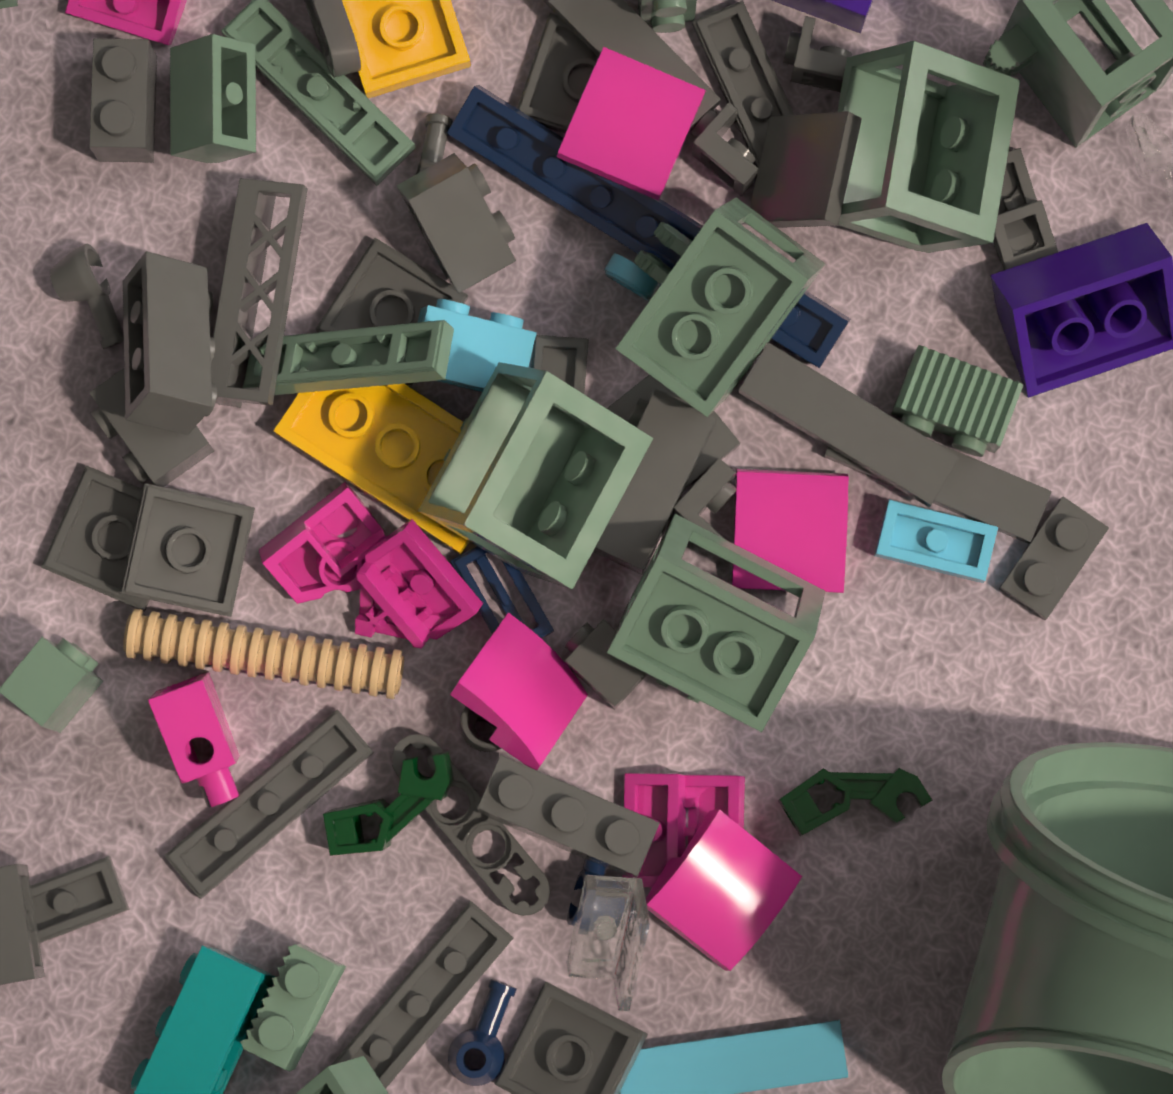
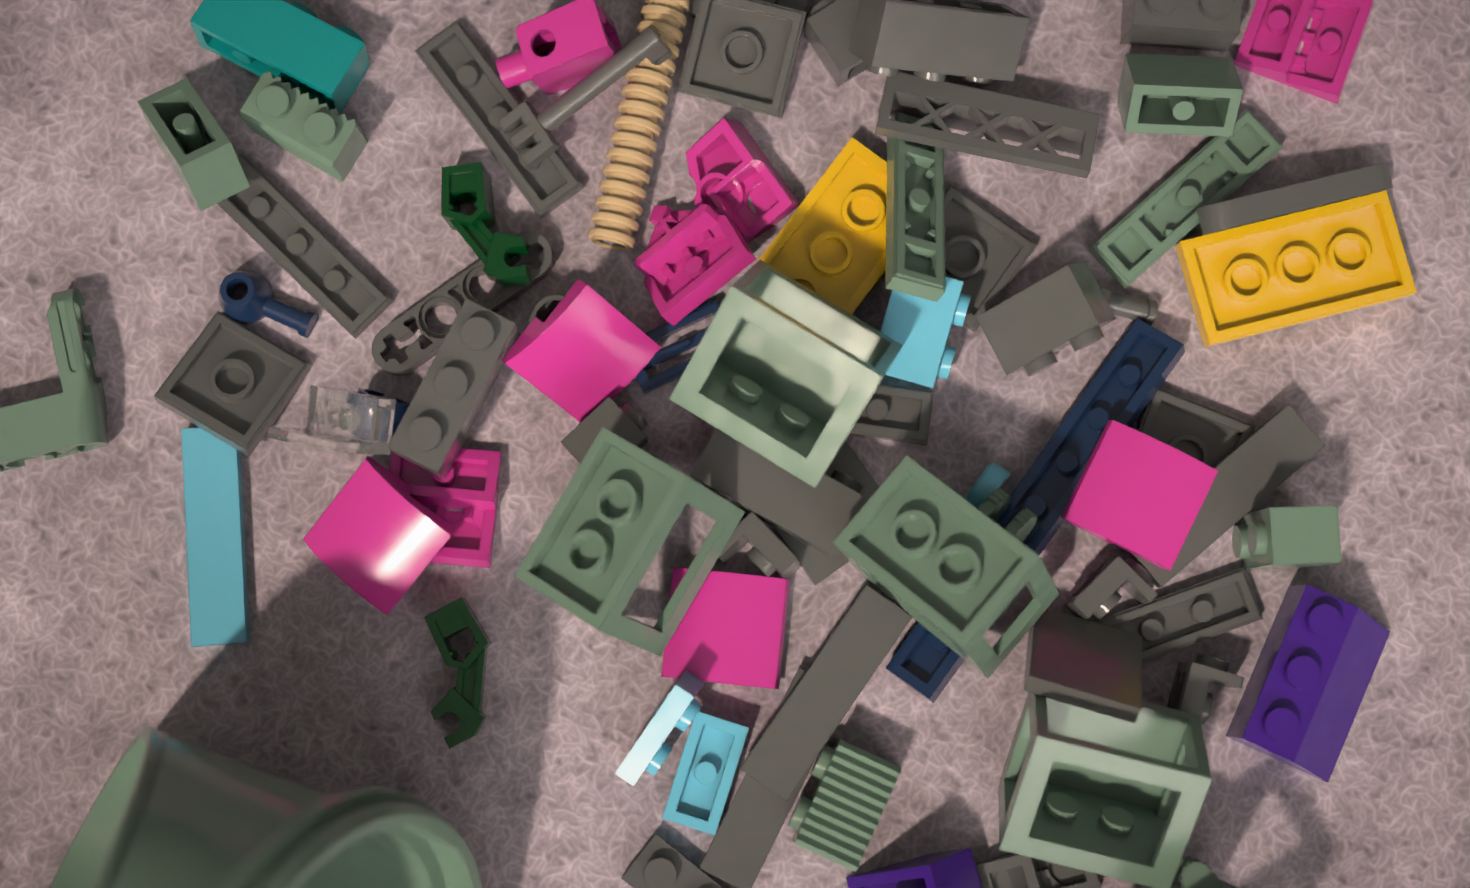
camera: 90 degrees right, 0 degrees up
(281, 755) = (539, 125): none -> dark grey hinge
(916, 596) = (676, 711): none -> plate

